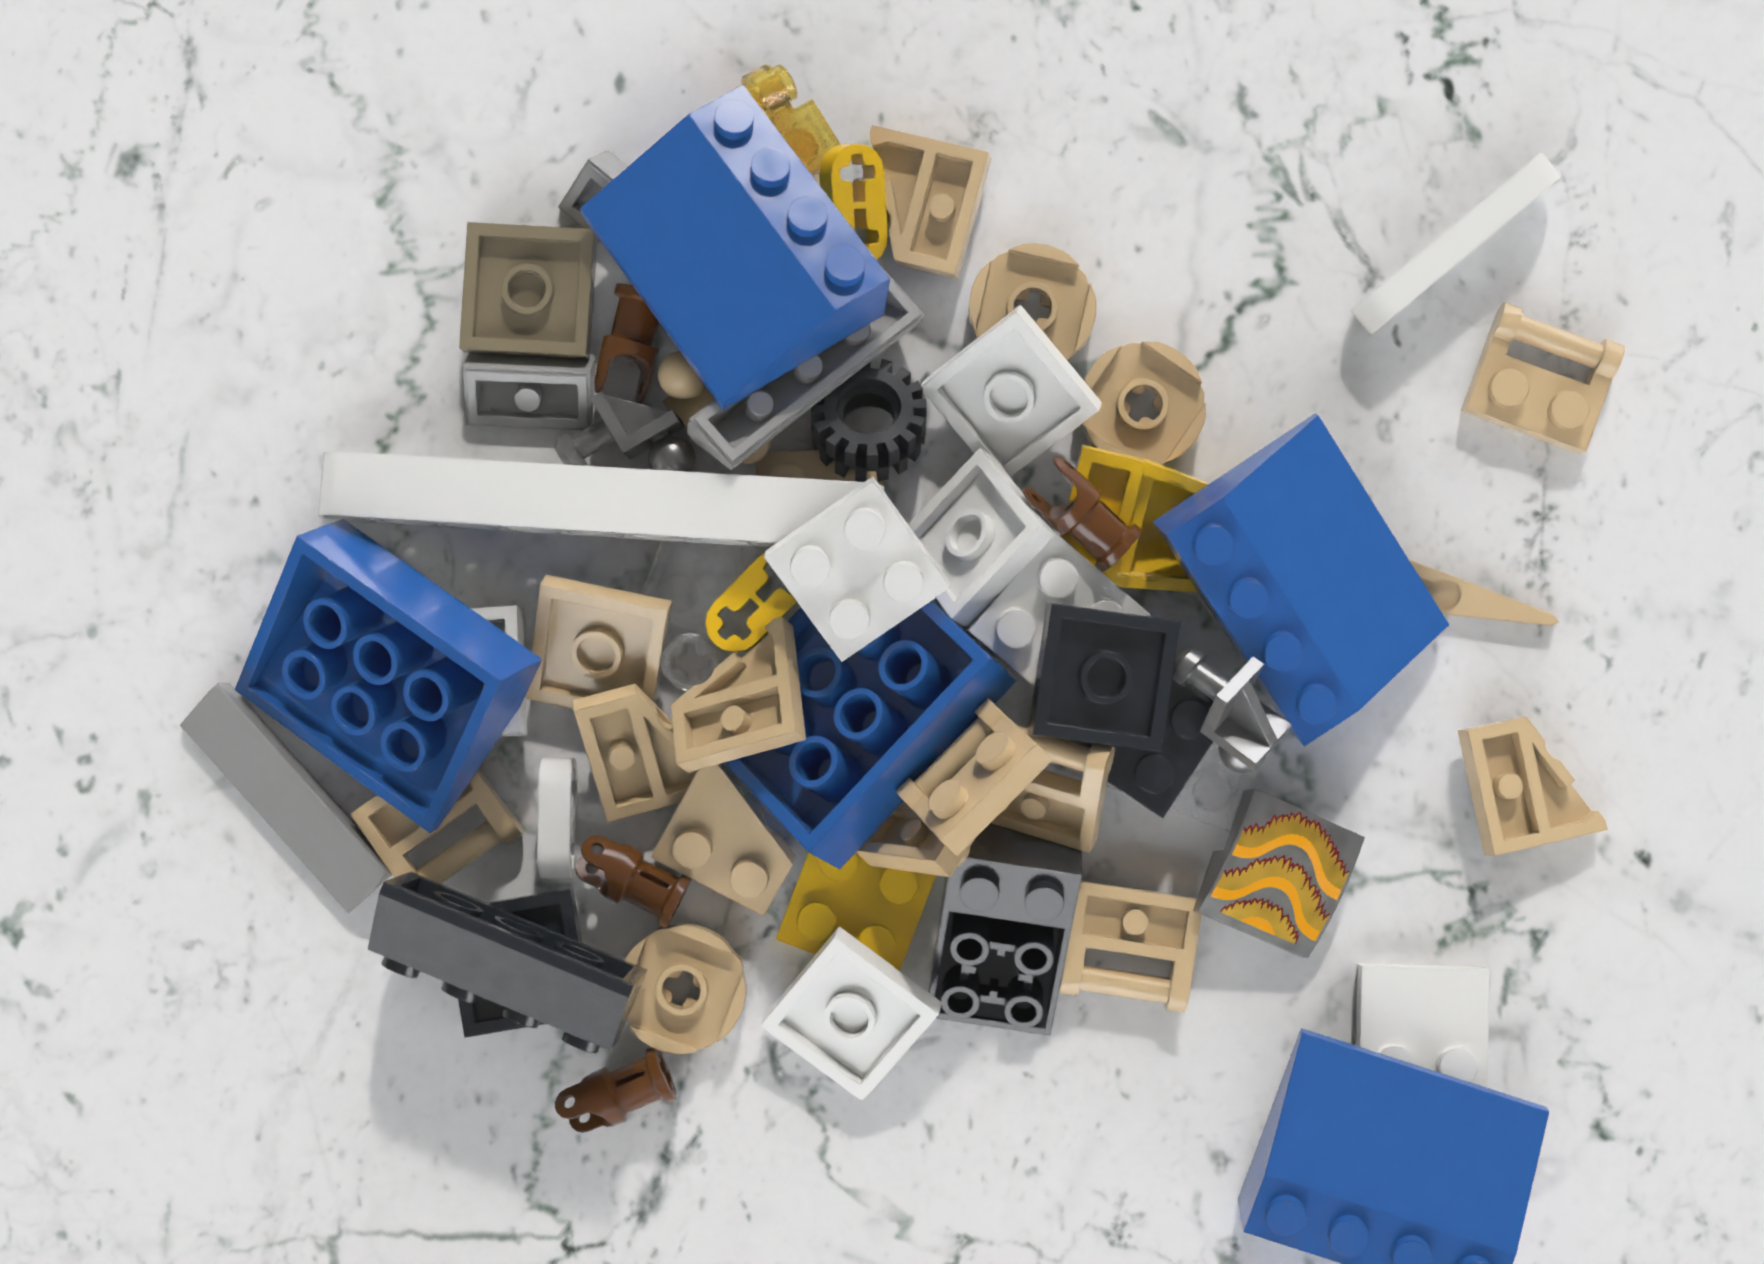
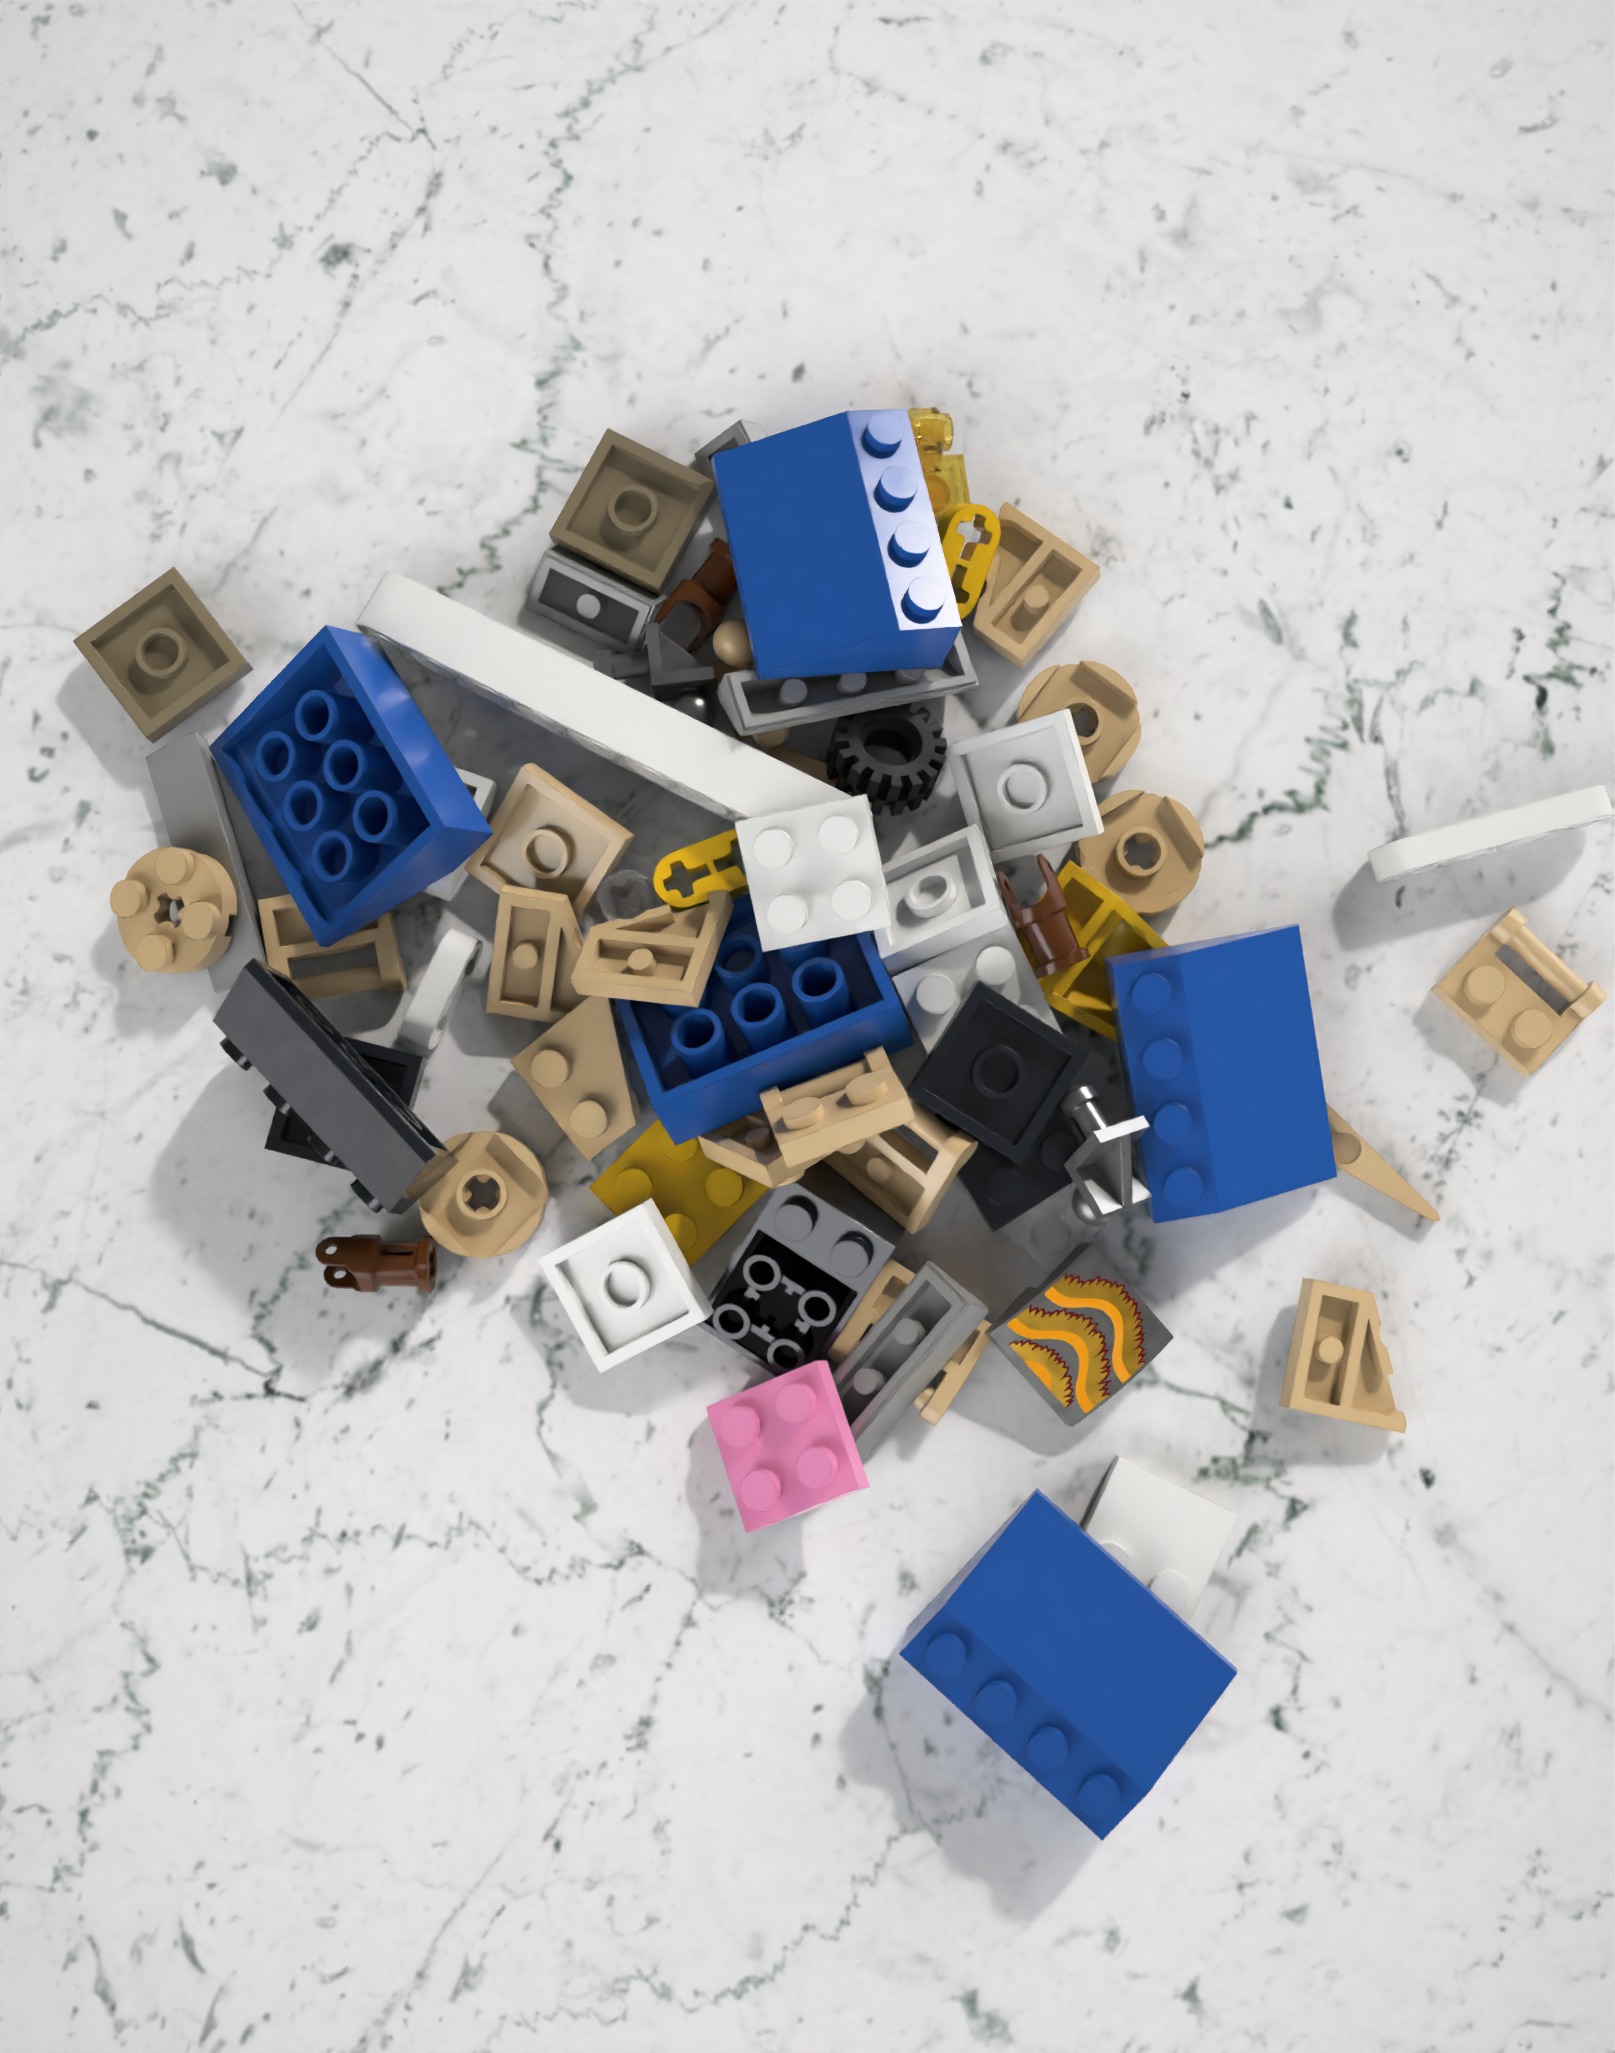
camera: 20 degrees right, 5 degrees down
(151, 623) = (163, 655): none -> dark tan plate
(251, 875) = (144, 910): none -> tan plate
(628, 877) = (481, 1070): reddish brown piece -> none
(1061, 1092) = (787, 1446): none -> bright pink plate
(1116, 1000) = (904, 1353): none -> light grey slope

